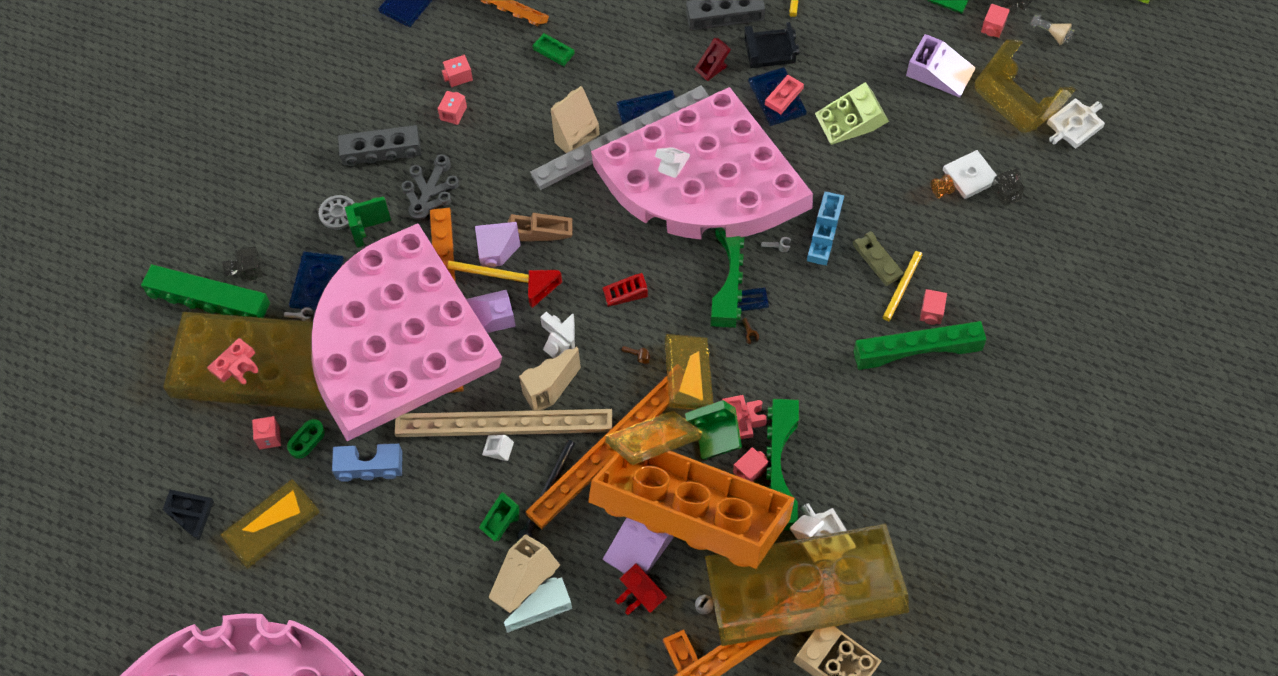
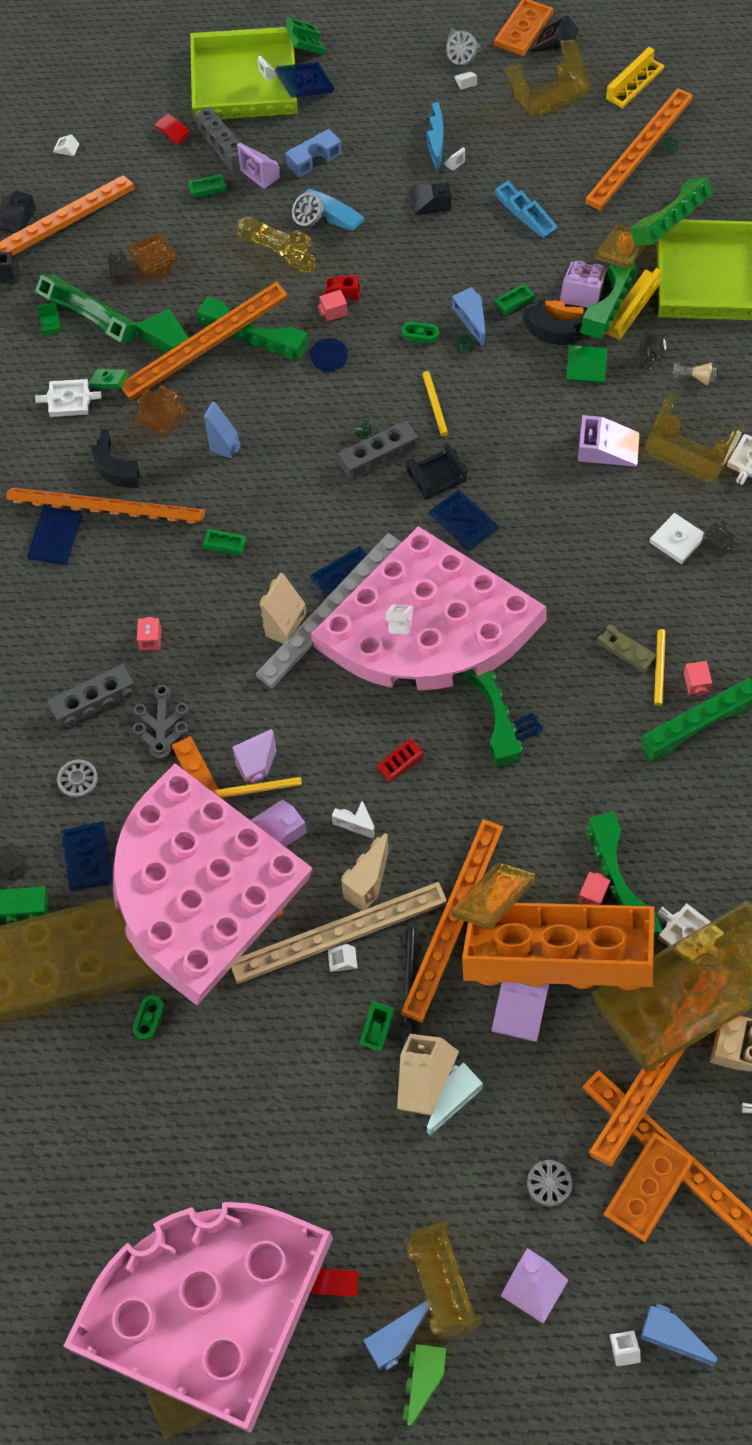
camera: 20 degrees left, 0 degrees up
(188, 511) = (61, 1133): black wing -> none
(234, 362) = (49, 967): coral plate -> none
(266, 432) = (107, 1026): coral brick -> none
(269, 523) = (148, 1115): clear yellow tile -> none
(300, 315) = (86, 896): light grey hand -> none
(366, 215) = (110, 772): green bracket -> none
(385, 464) = (240, 1015): medium blue arch -> none
(457, 71) = (137, 595): coral brick -> none
(541, 284) = (316, 781): red slope -> none
(542, 227) = (292, 725): medium nougat slope -> none
(556, 345) = (358, 839): white plate -> none
(643, 354) = (443, 817): reddish brown hand -> none
(643, 589) = (544, 1045): red hinge -> none
(688, 372) = (497, 820): clear yellow tile -> none
(707, 607) = (599, 1038): light grey hinge -> none
(713, 59) = (388, 503): dark red slope -> none
(718, 428) = (550, 866): green bracket -> none
(746, 415) = (565, 846): coral plate -> none
(749, 331) = (536, 761): reddish brown hand -> none
(780, 245) = (529, 666): light grey hand -> none
(784, 94) = (472, 516): coral plate -> none
(806, 527) = (673, 930): white slope -> none
(825, 228) = (565, 635): dark azure slope -> none
(852, 115) = (543, 516): yellowish green slope -> none
(942, 186) = (657, 558): clear orange wheel -> none
(995, 20) = (639, 381): coral brick -> none

